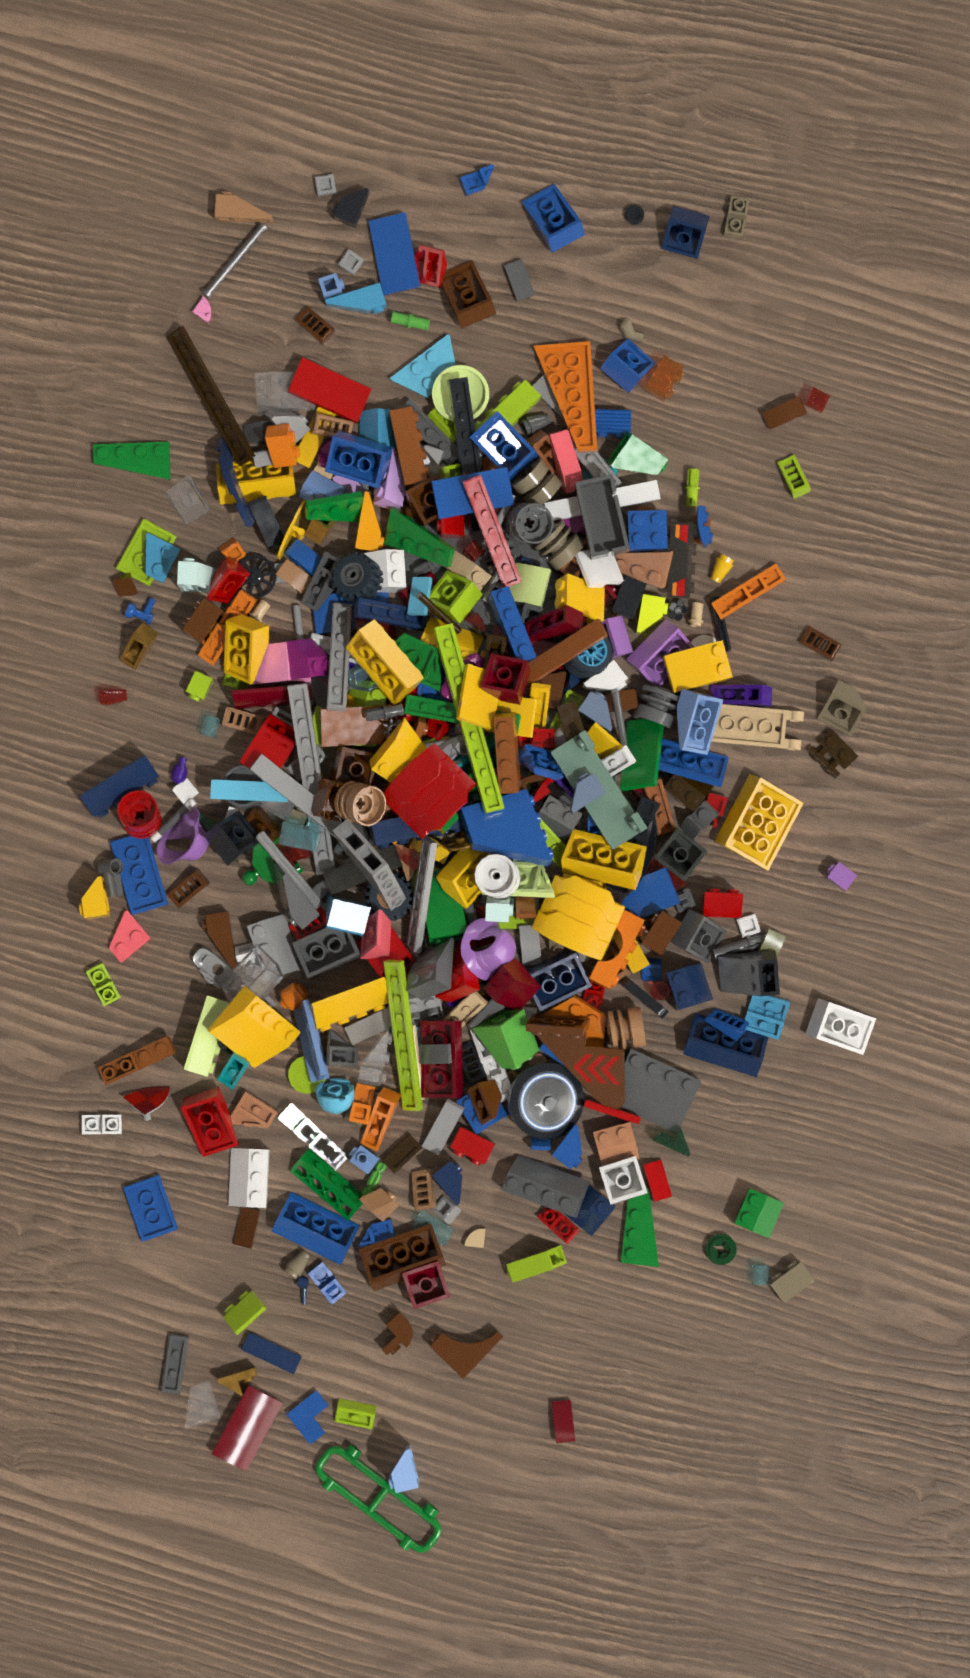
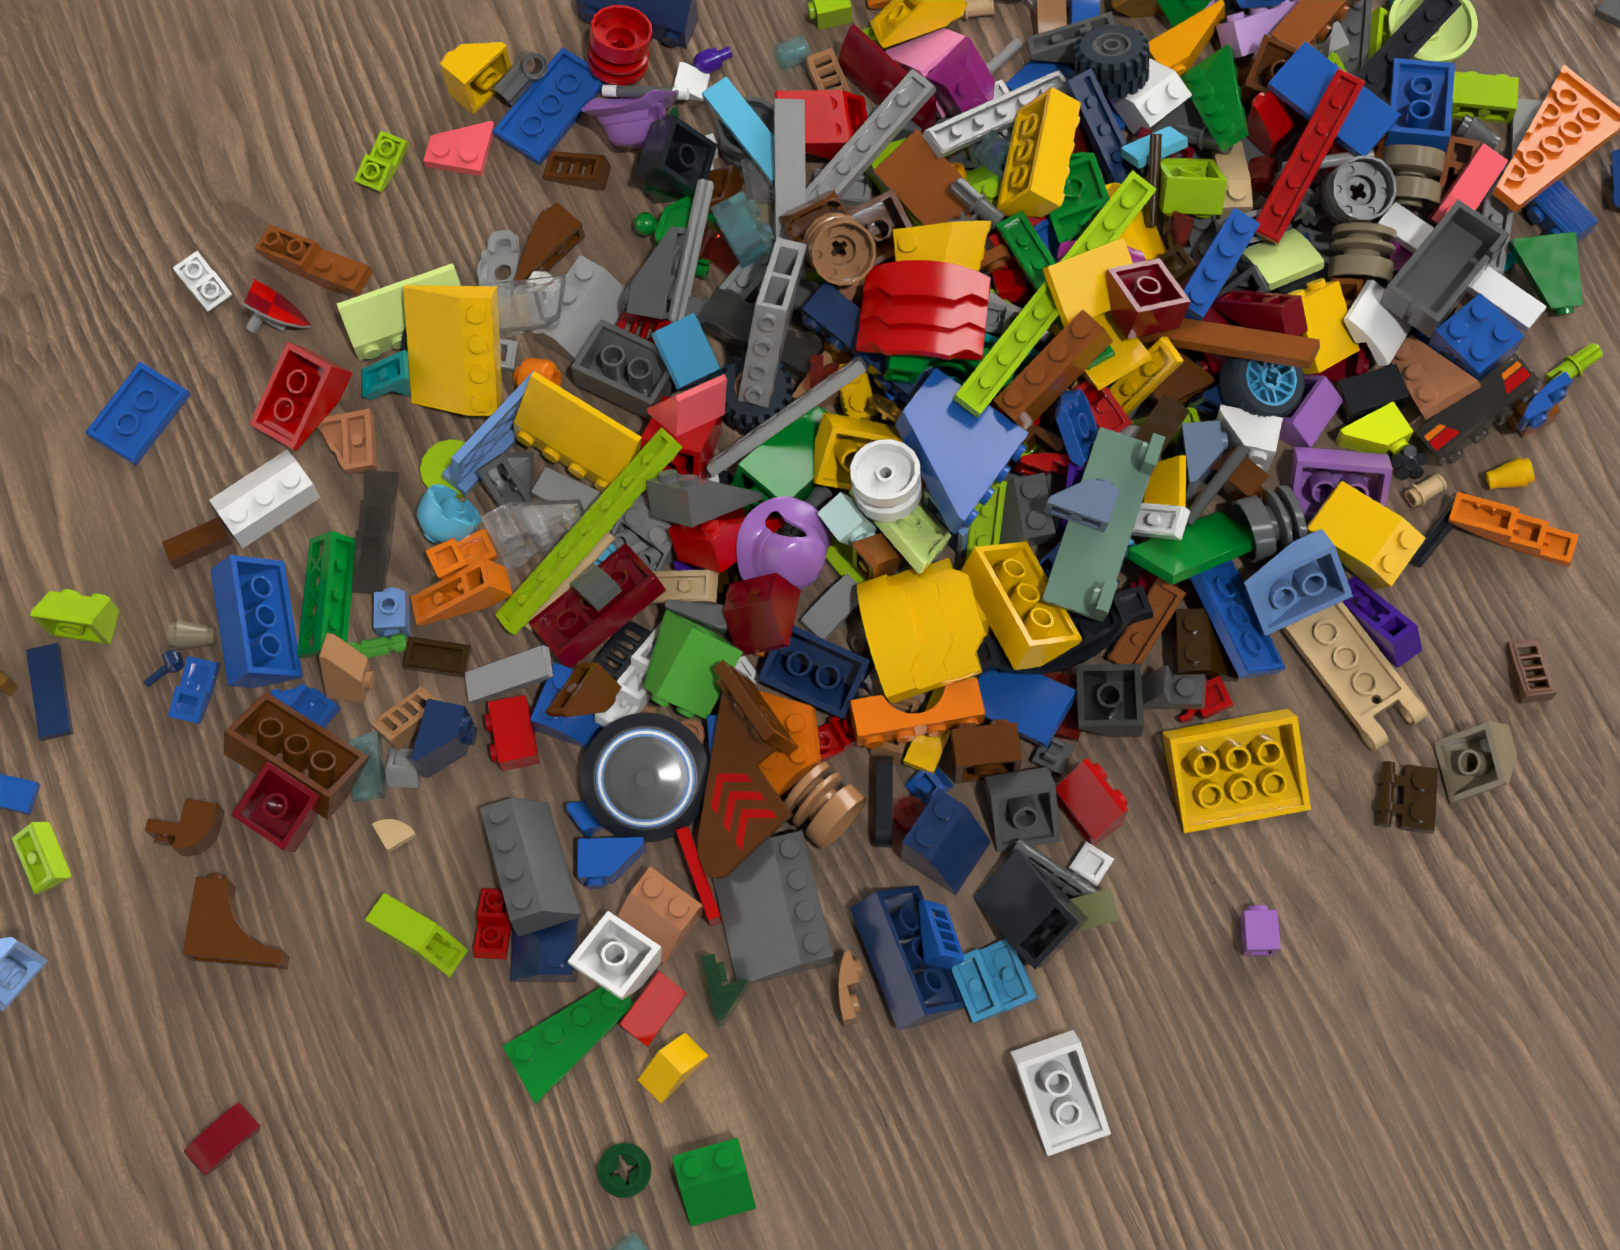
camera: 55 degrees right, 15 degrees down
(691, 1191) = (672, 1067): none -> yellow slope
(714, 1080) = (849, 977): none -> medium nougat slope

